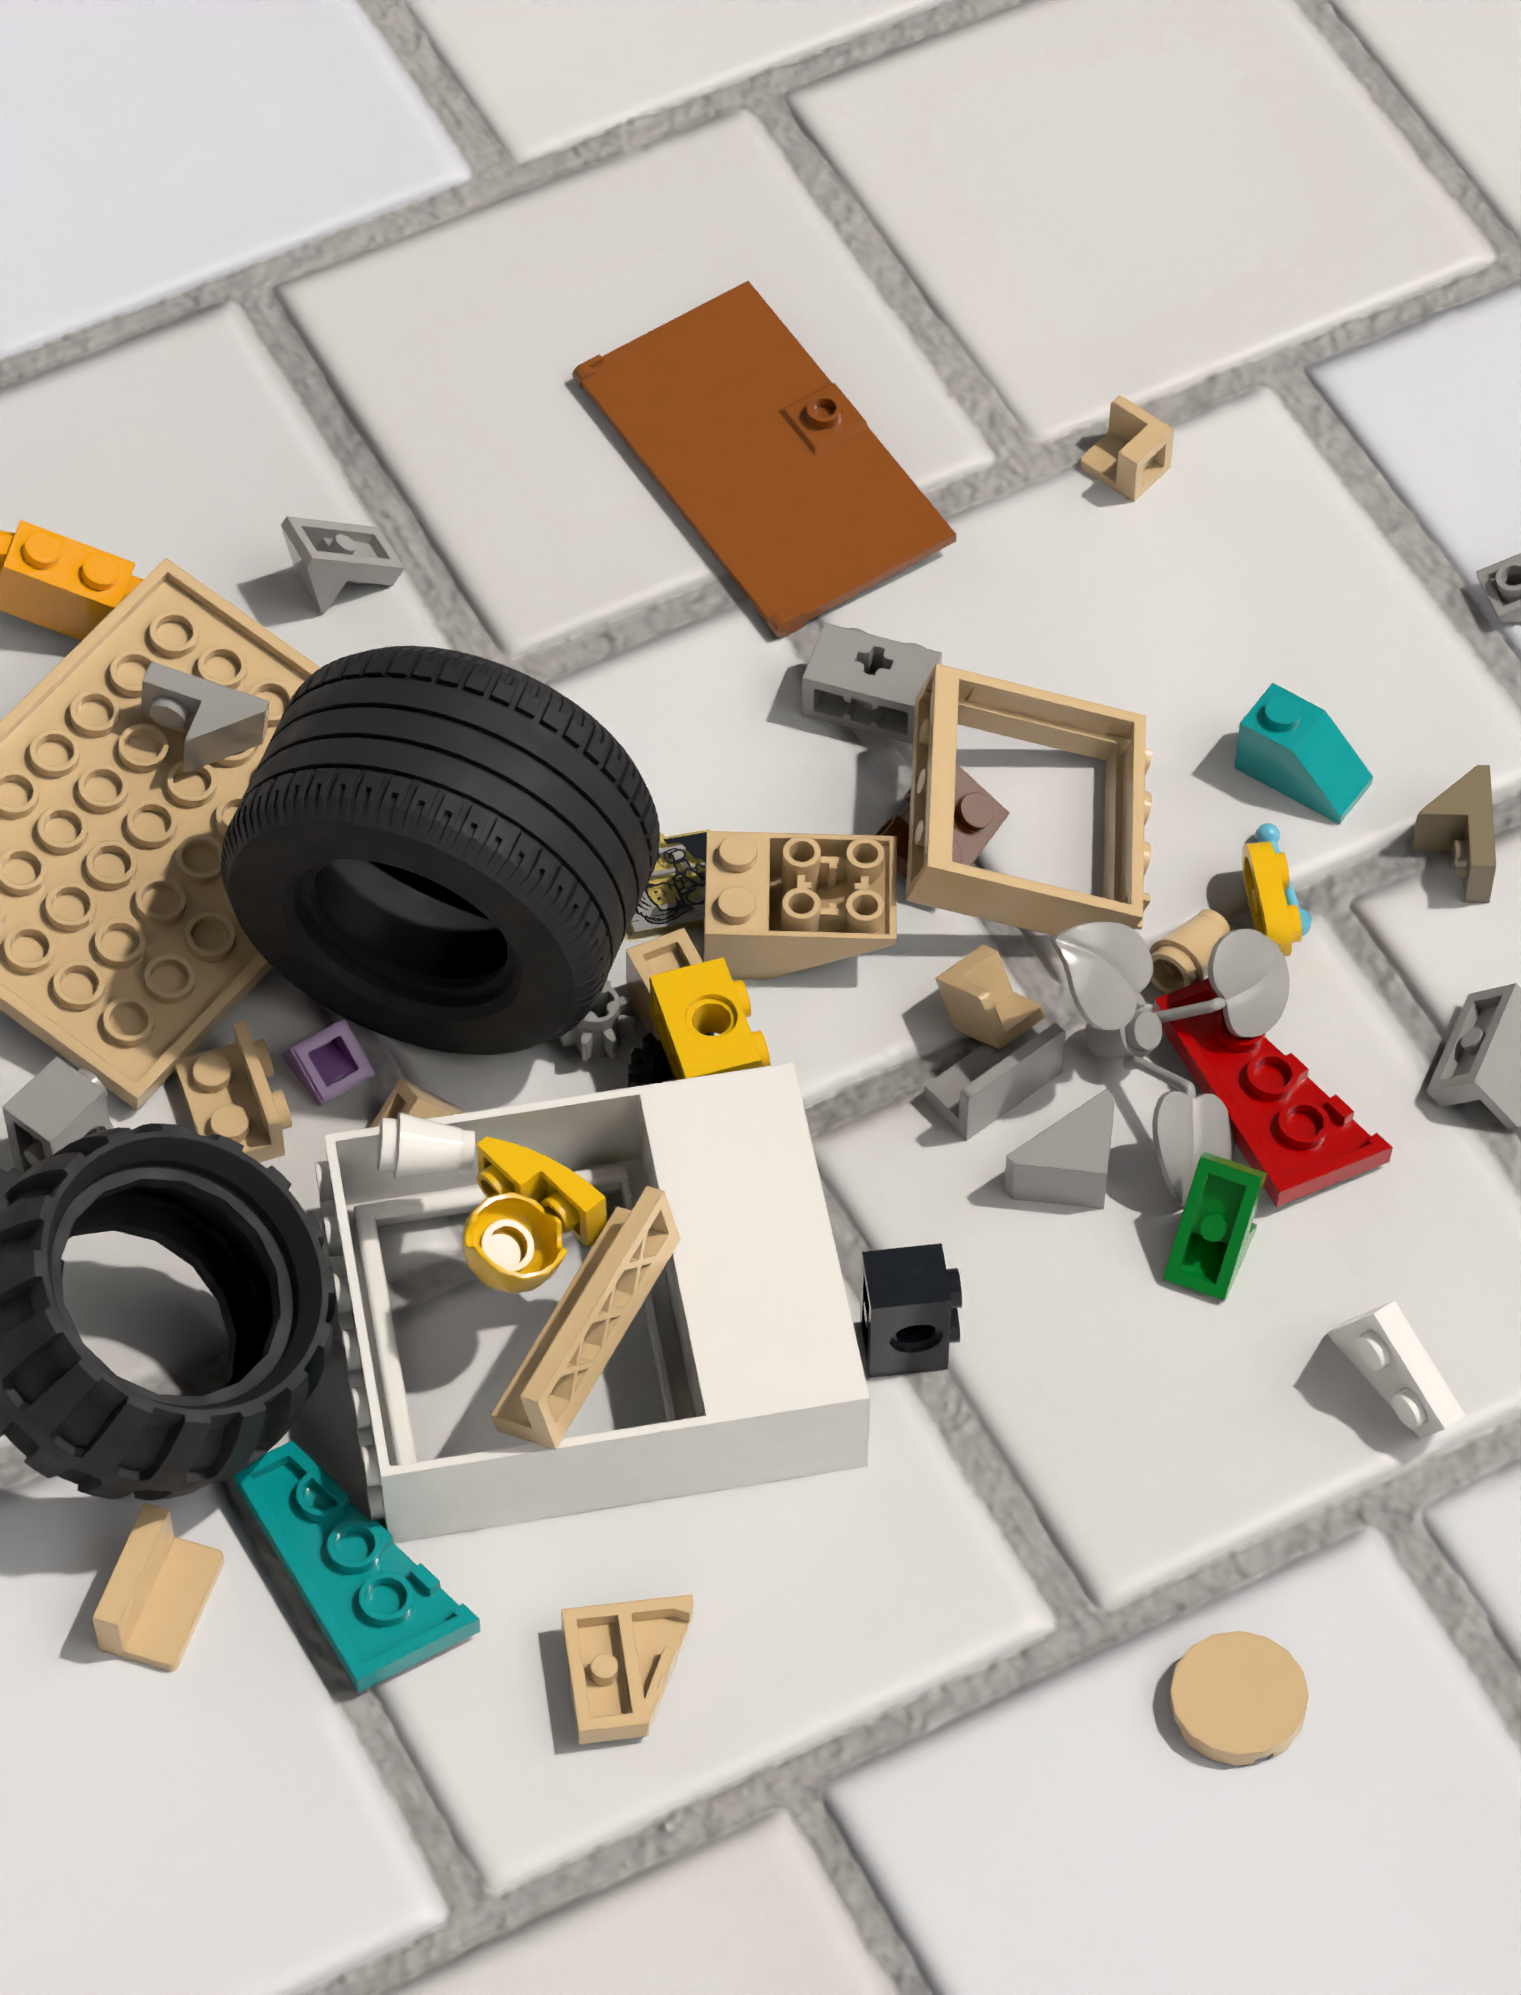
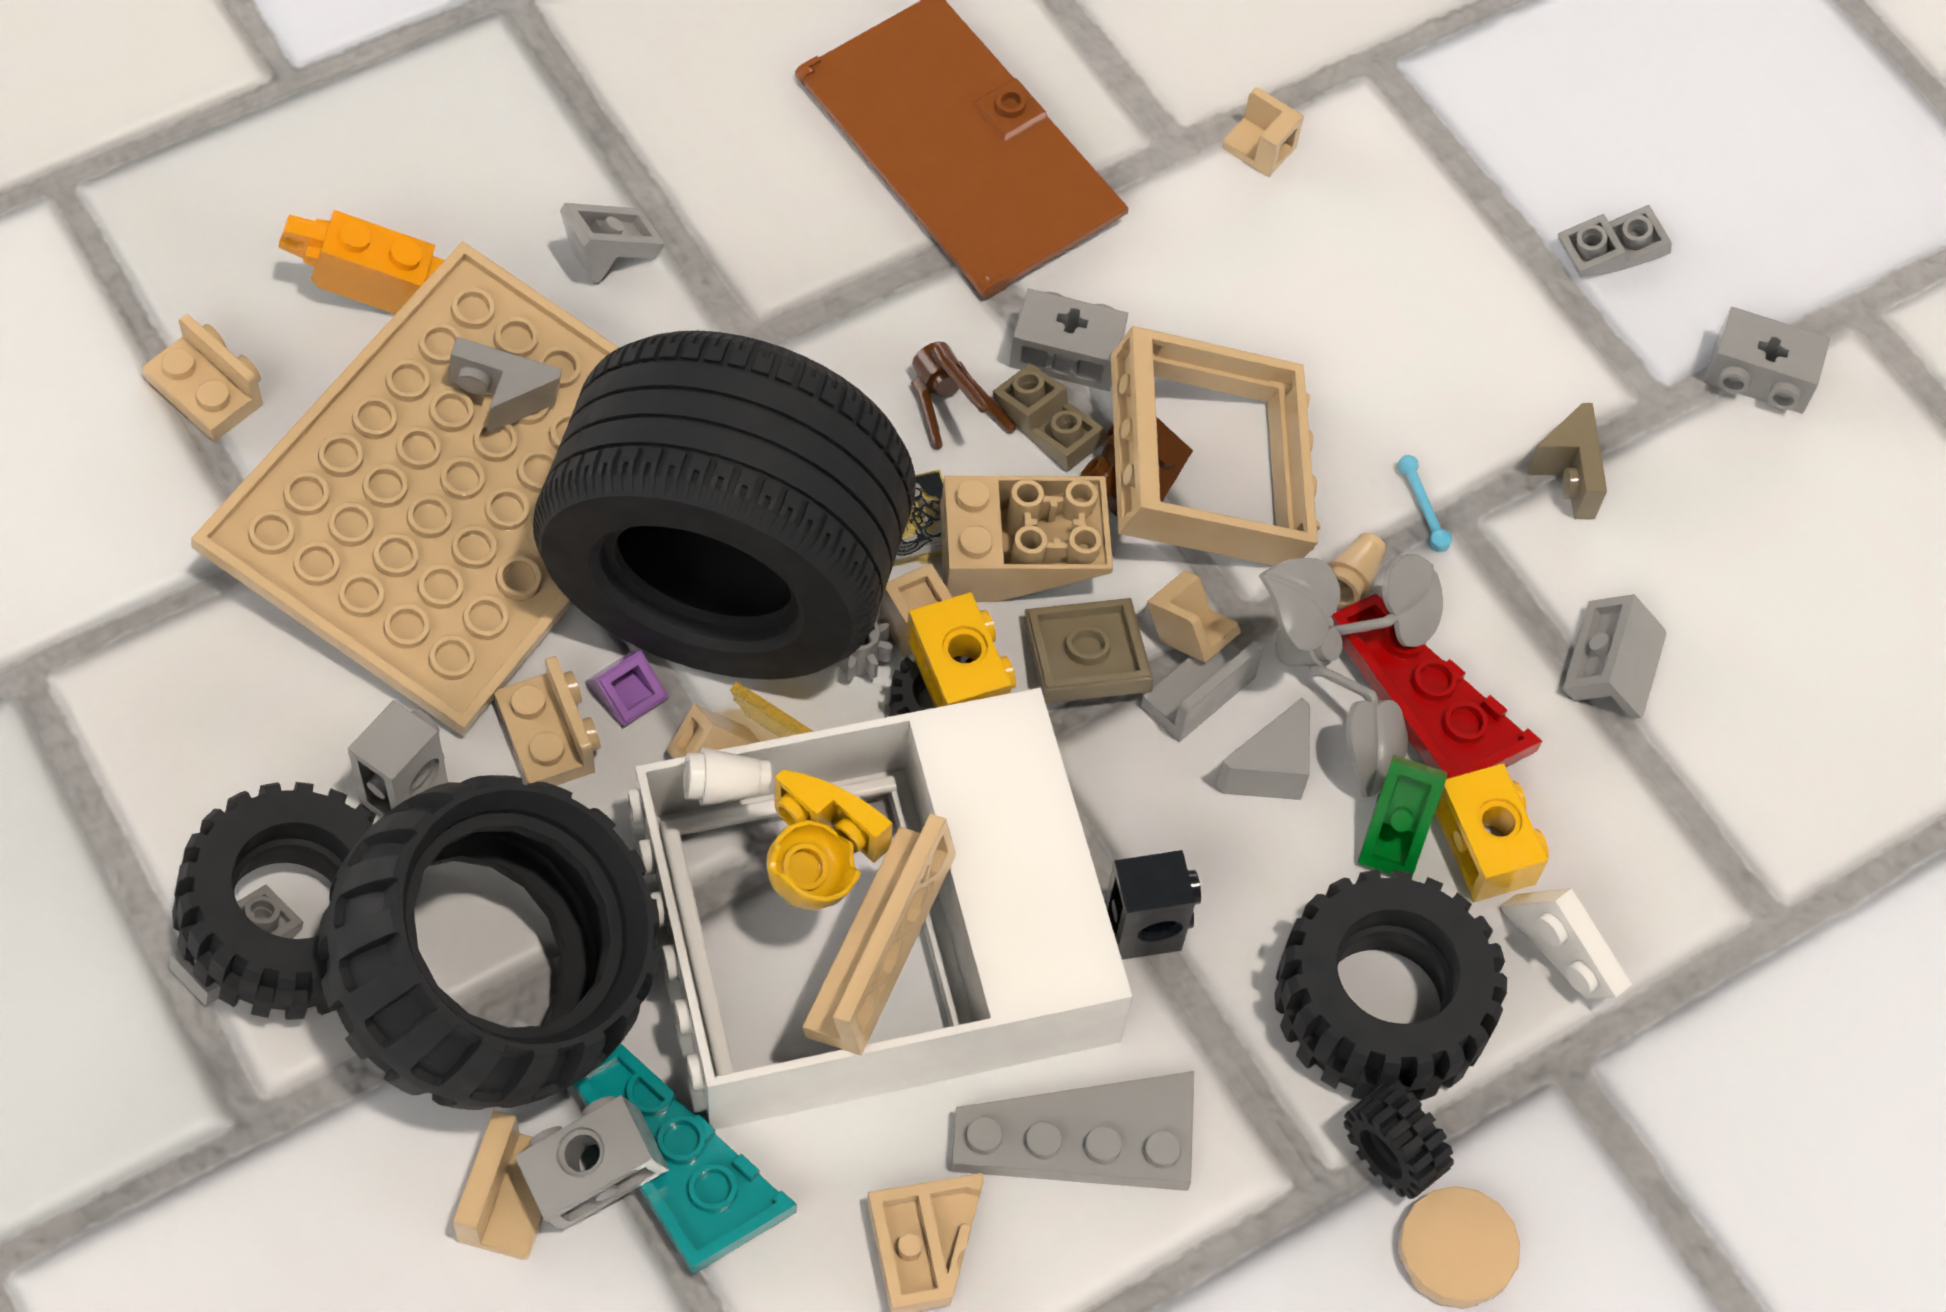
camera: 10 degrees left, 5 degrees up
(286, 1565) = (625, 1161): none -> light grey brick
(475, 1085) = (766, 713): none -> clear yellow piece
(721, 722) = (944, 375): none -> reddish brown plant
(823, 1562) = (1093, 1134): none -> light grey wing
(836, 768) = (1043, 413): none -> dark tan slope
(864, 1034) = (1088, 650): none -> dark tan tile
(1172, 1574) = (1398, 1140): none -> black tyre
(1191, 1335) = (1408, 921): none -> black tyre
(1264, 882) = (1413, 512): yellow plate -> none
(1301, 754) = (1431, 394): teal slope -> none
(1319, 1280) = (1487, 861): none -> yellow brick

